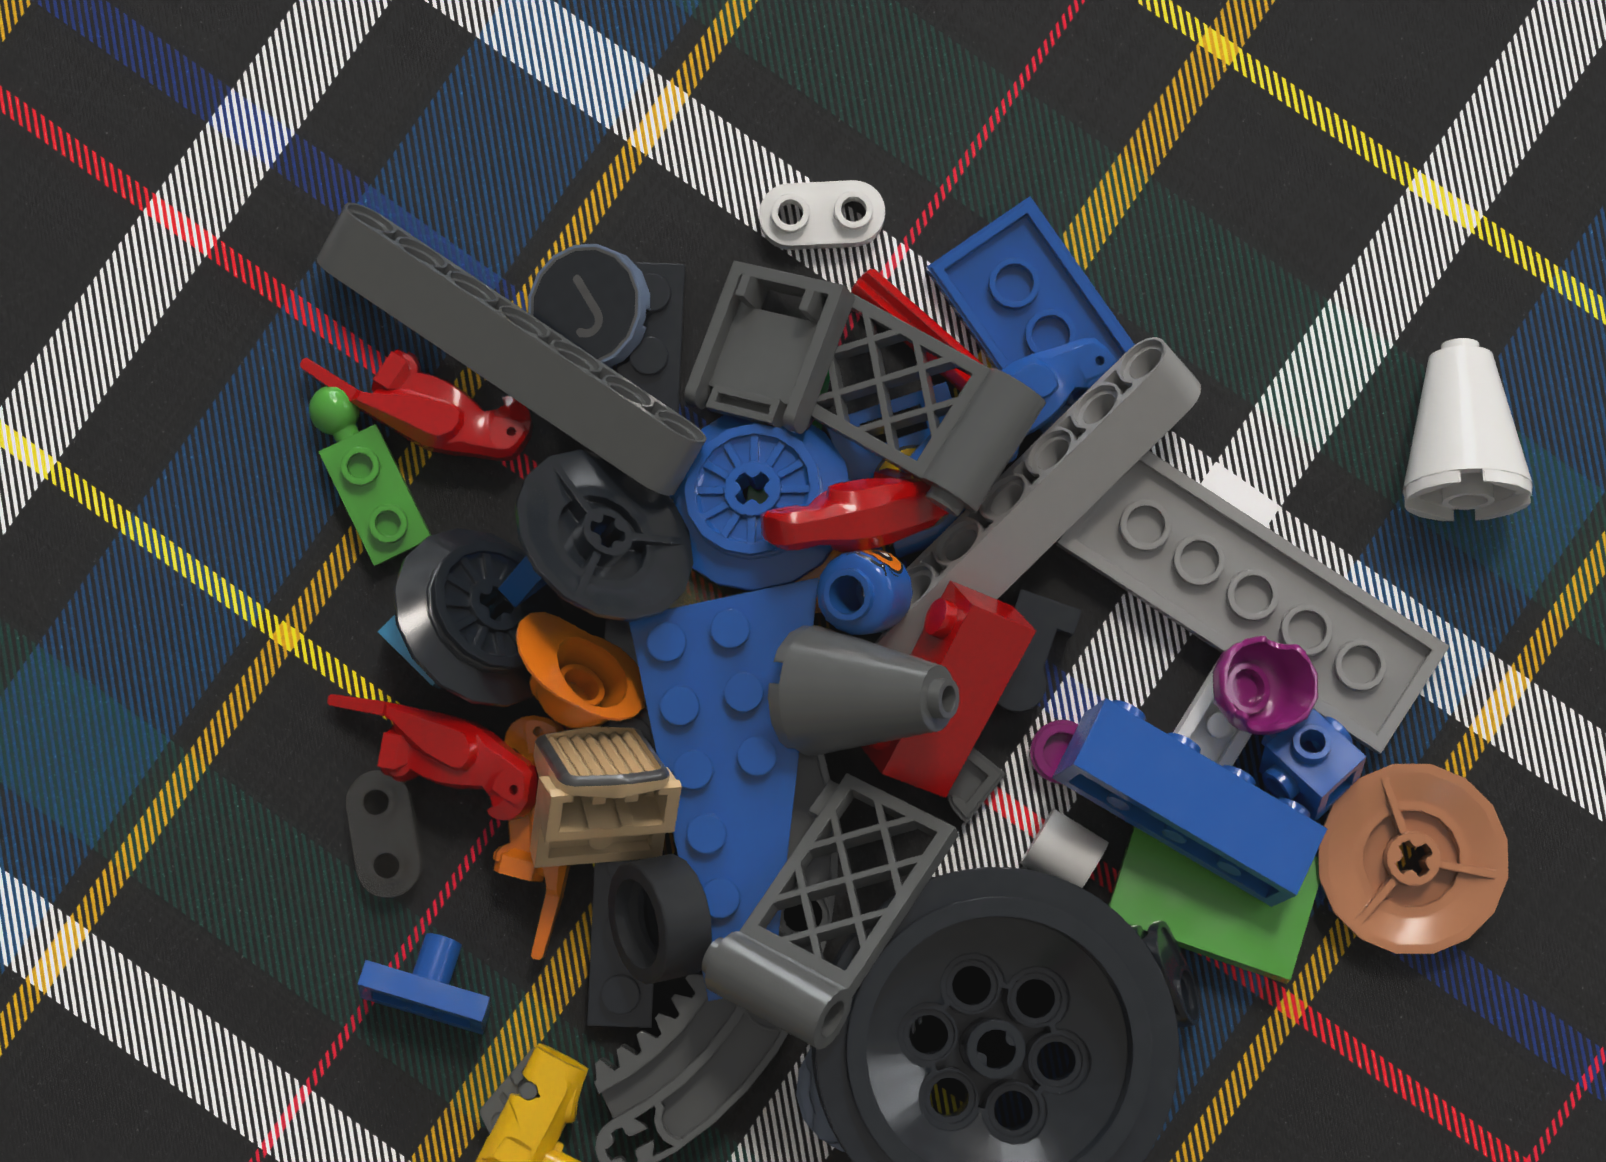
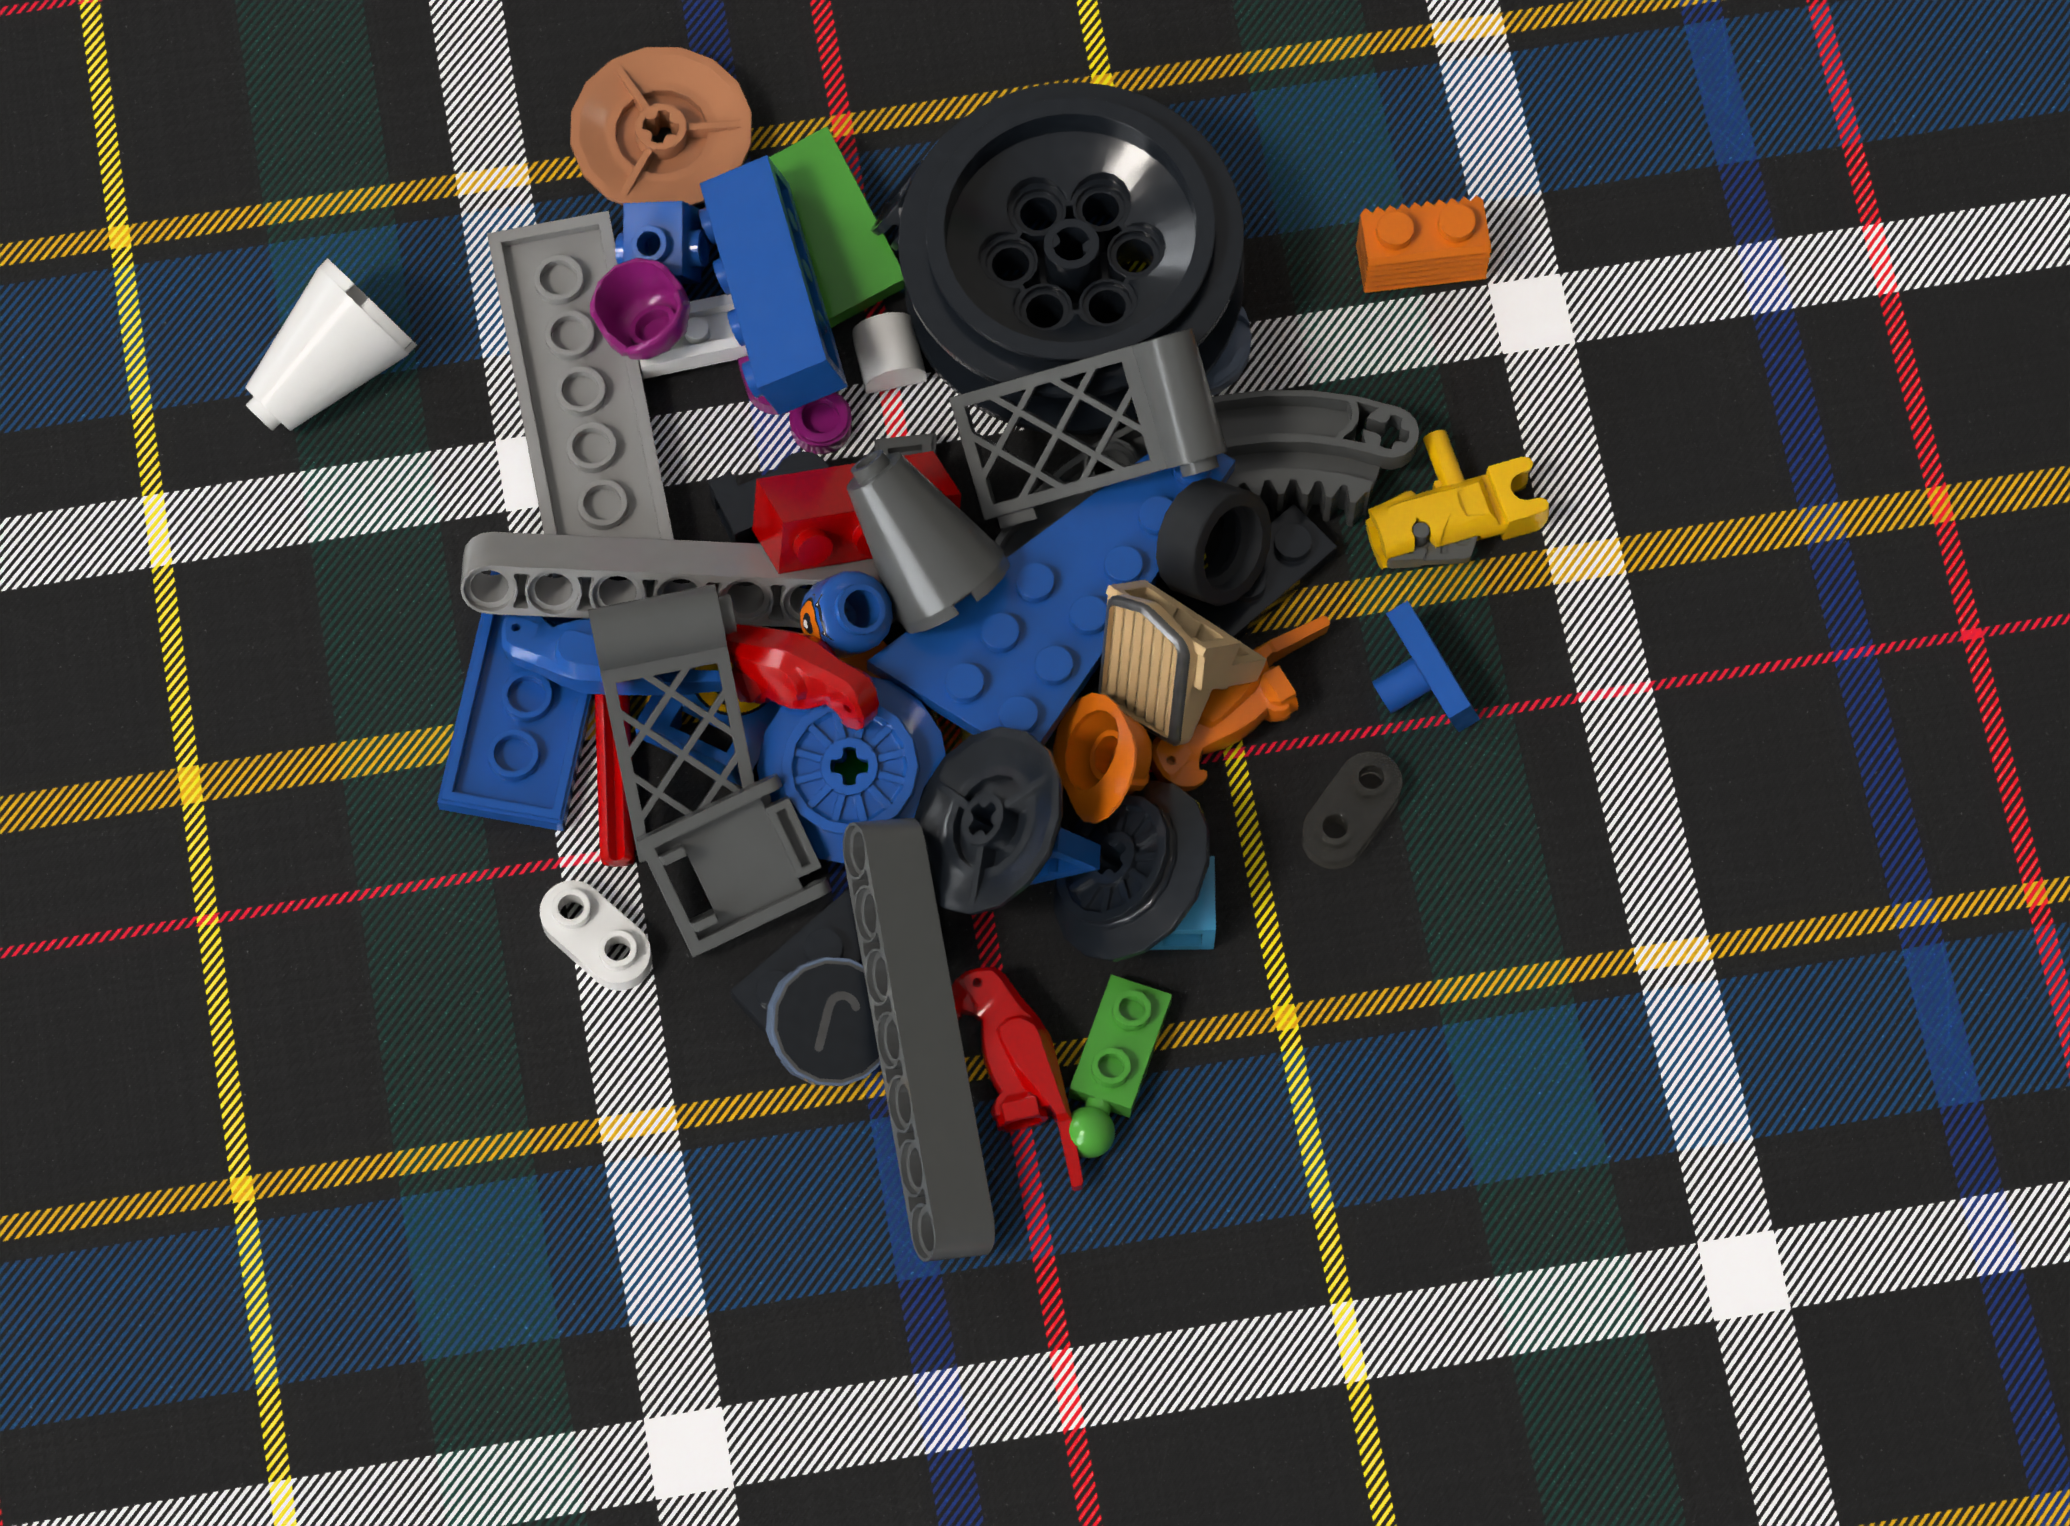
camera: 135 degrees left, 15 degrees down
(452, 754) = (1248, 805): red animal -> none

